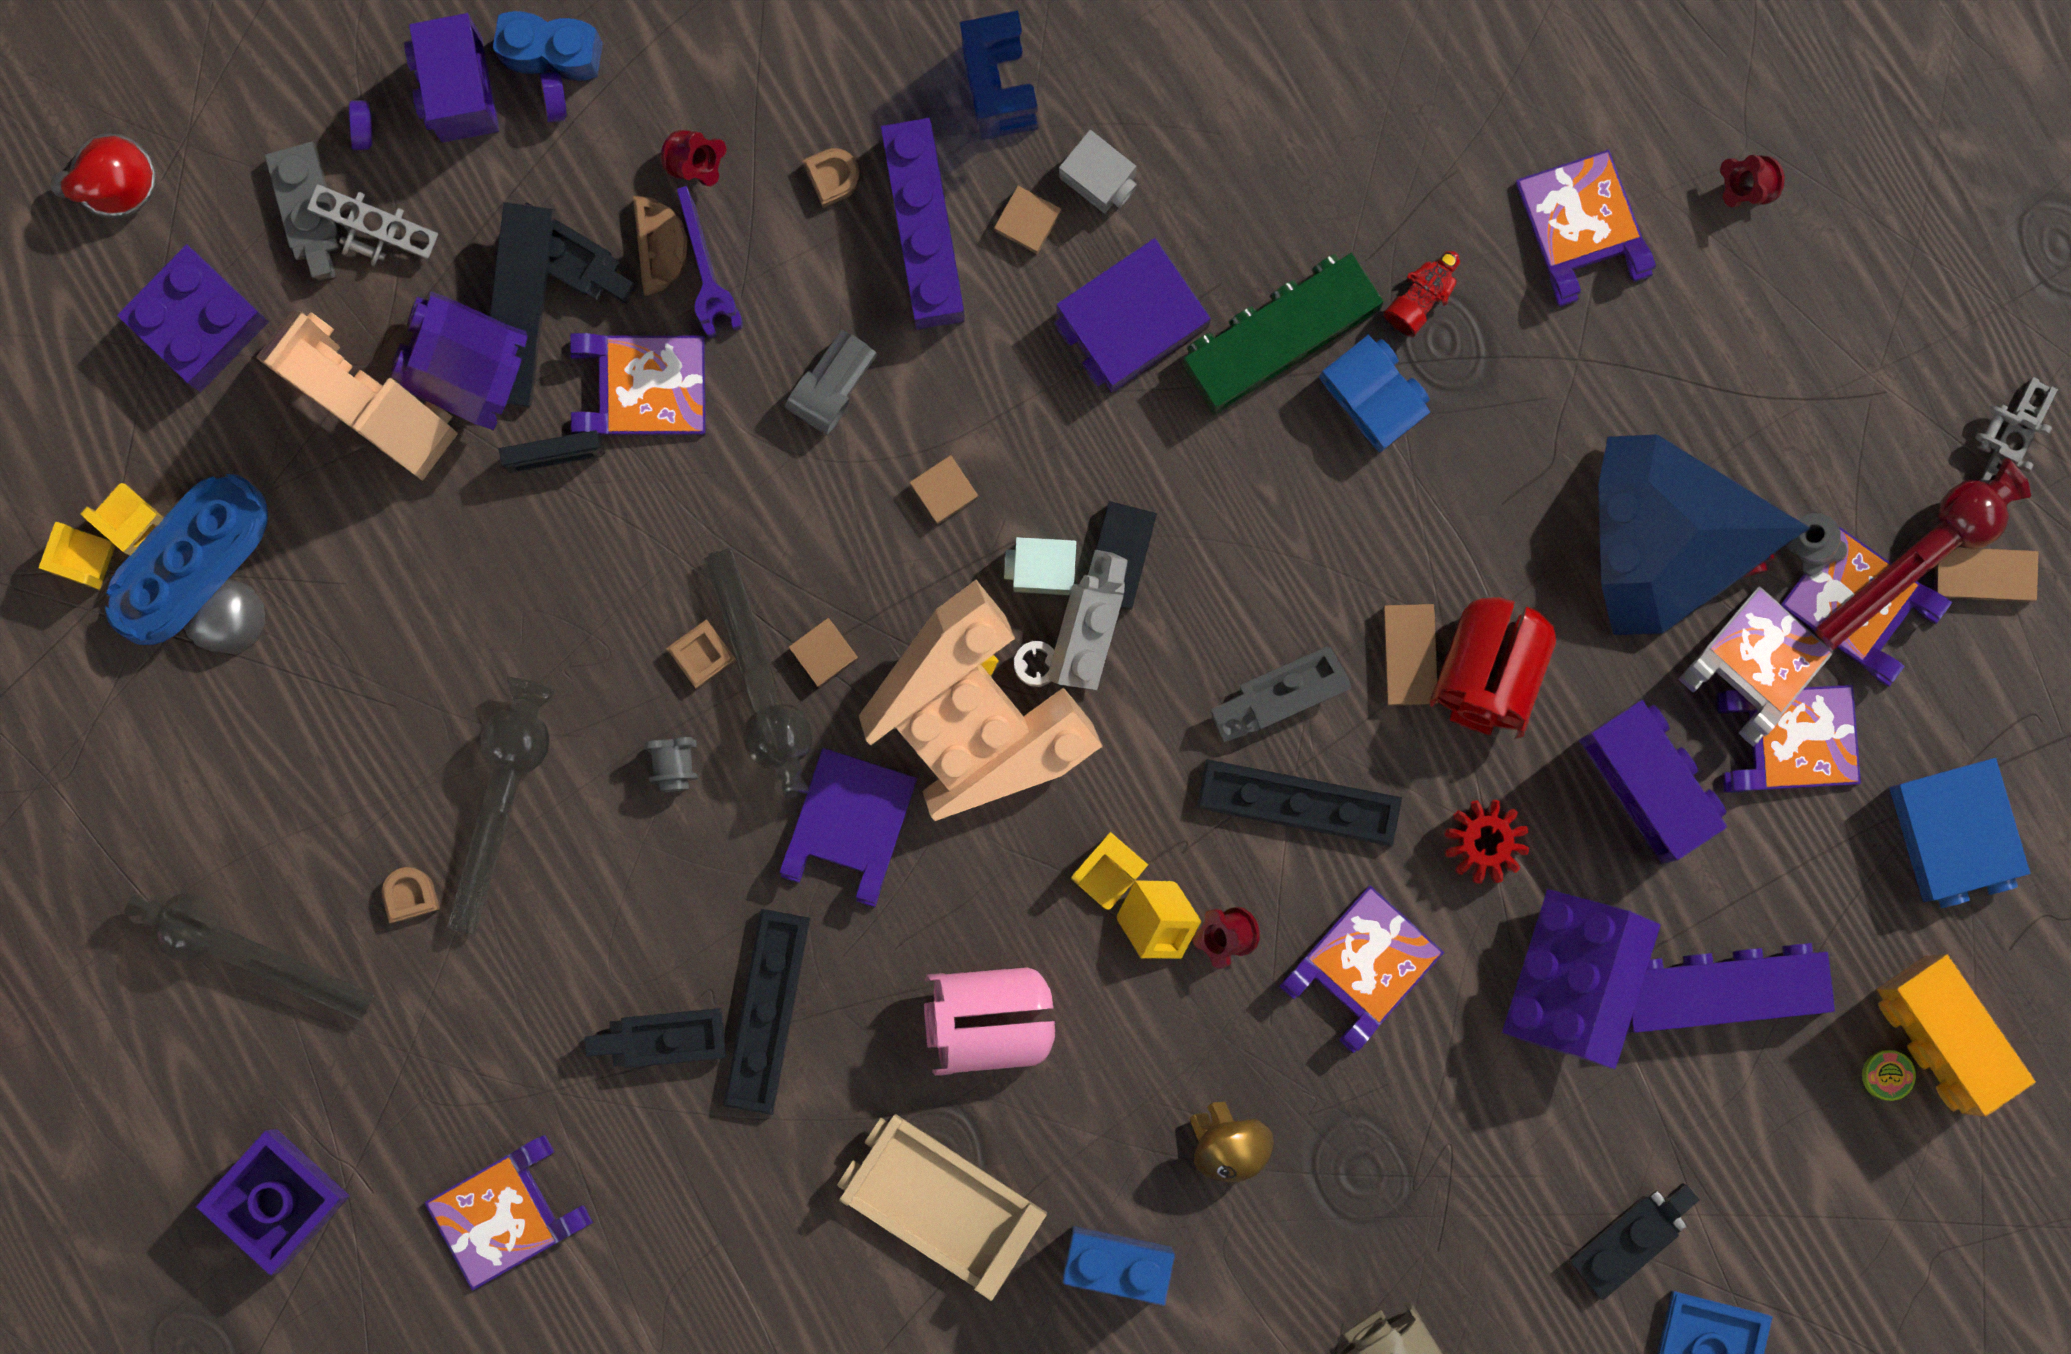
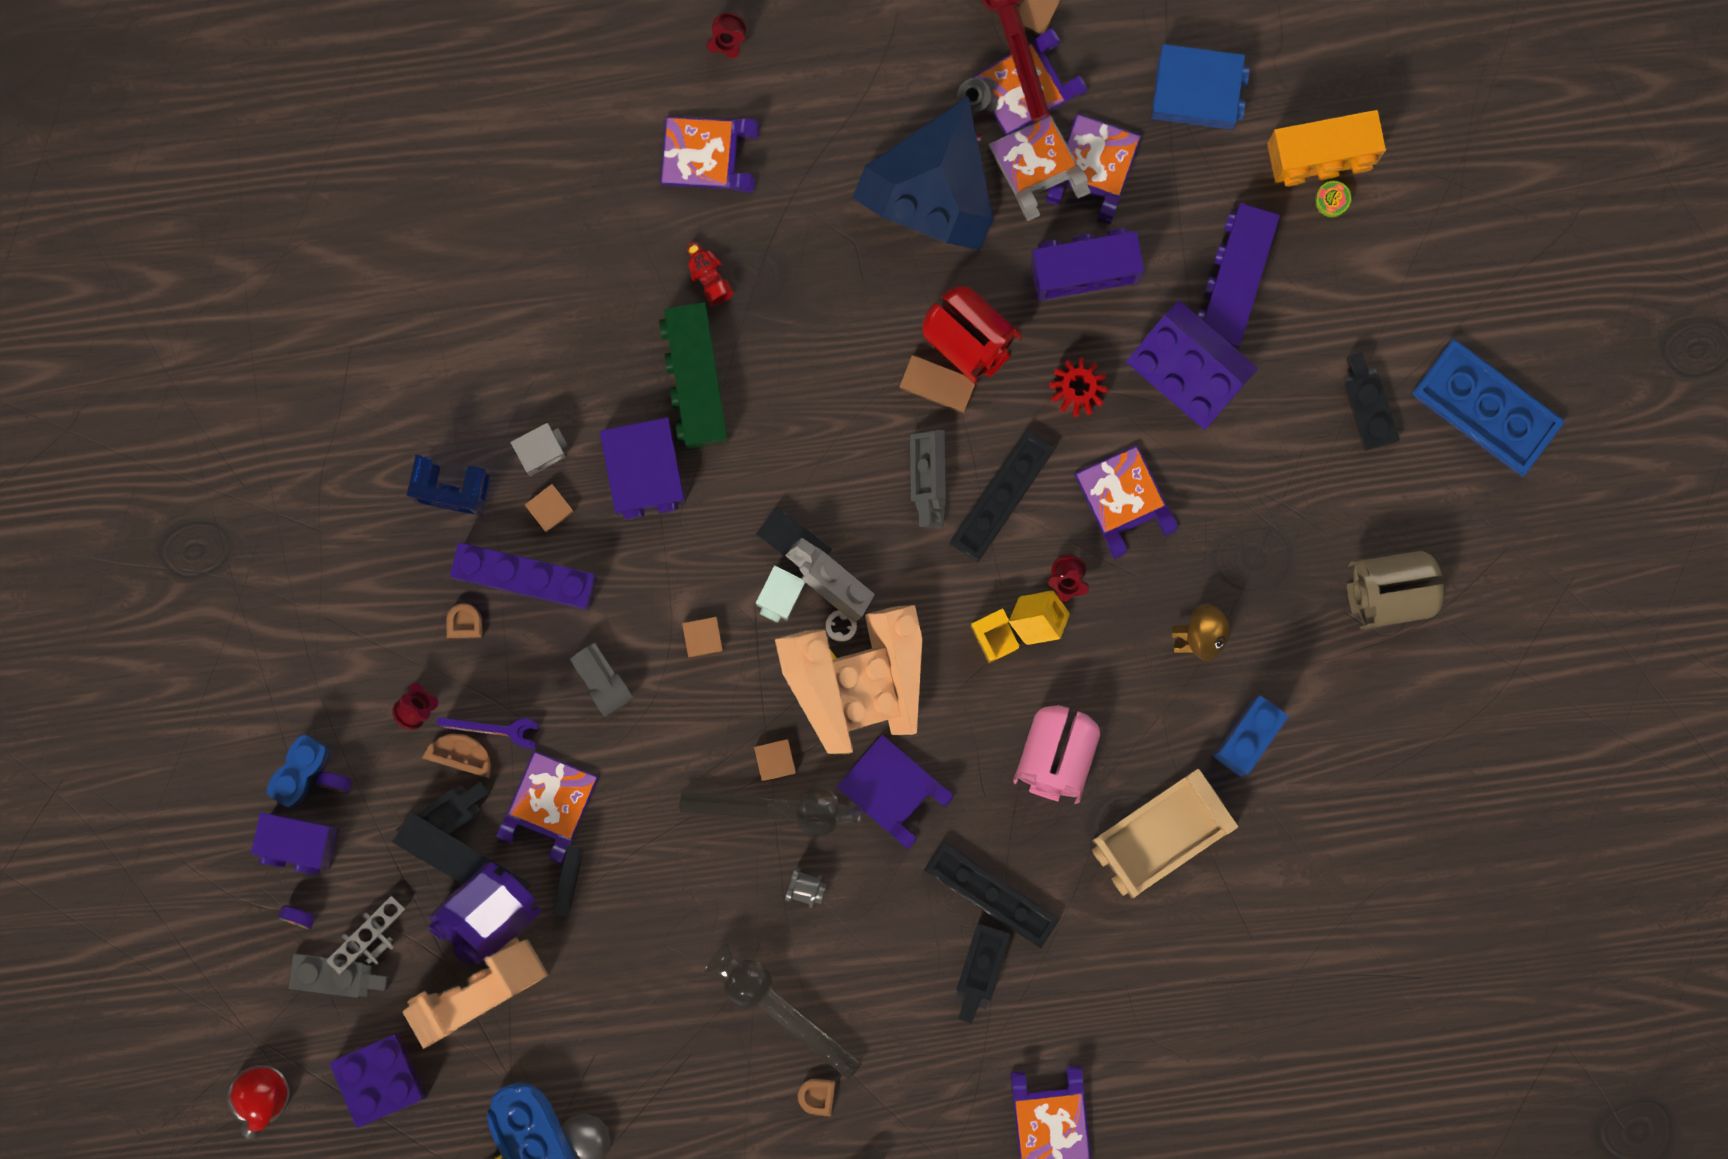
camera: 70 degrees left, 0 degrees up
(701, 654) = (741, 840): medium nougat tile -> none
(1375, 392) = (760, 333): blue brick -> none

